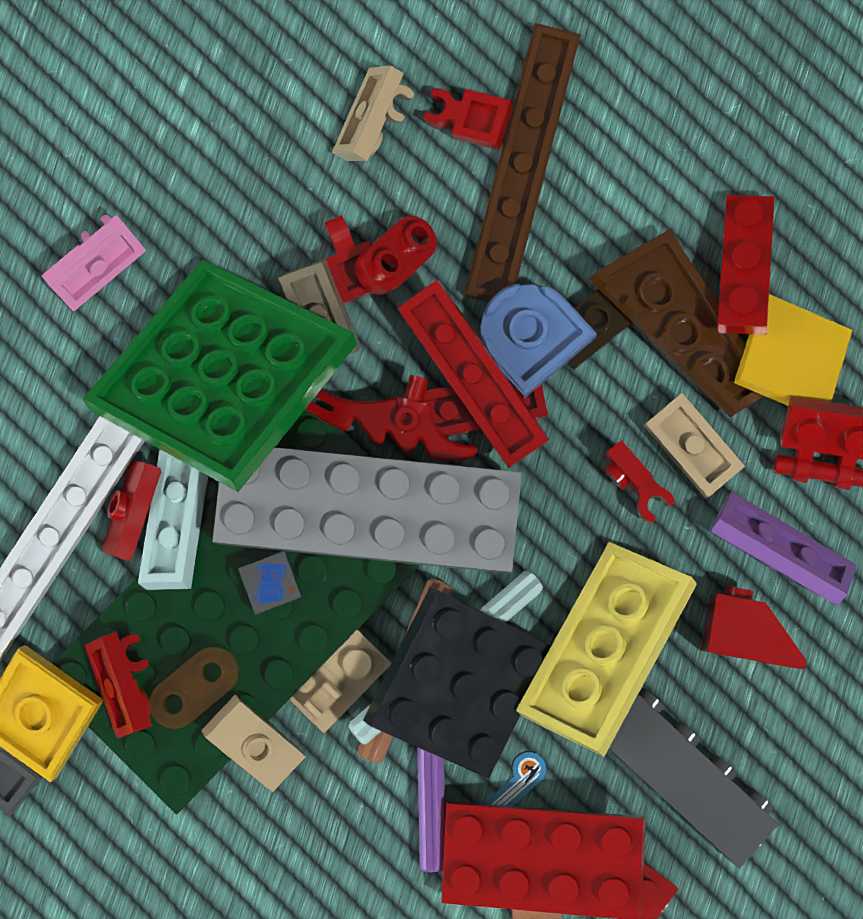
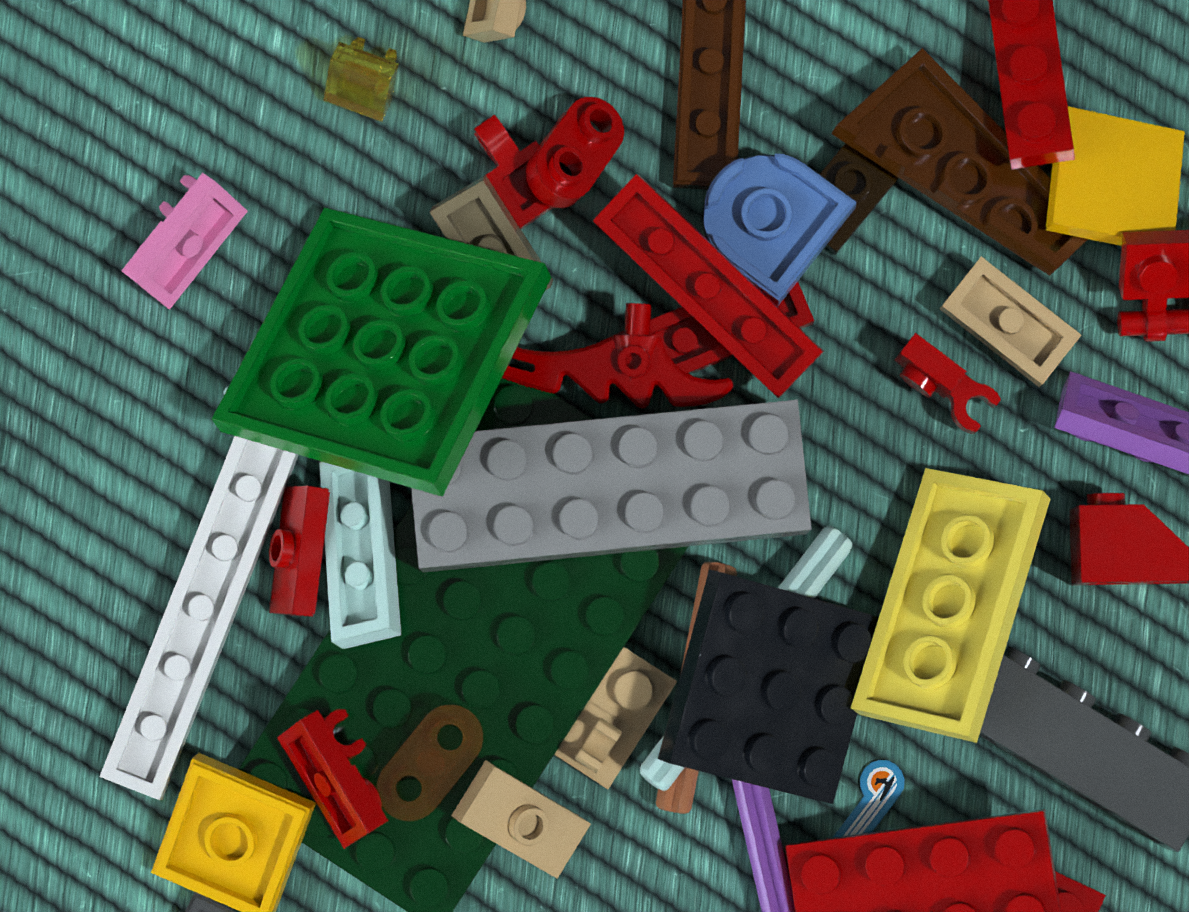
camera: 10 degrees left, 0 degrees up
(249, 169) = (361, 79): none -> clear yellow tile
(270, 582) = (500, 608): tile -> none

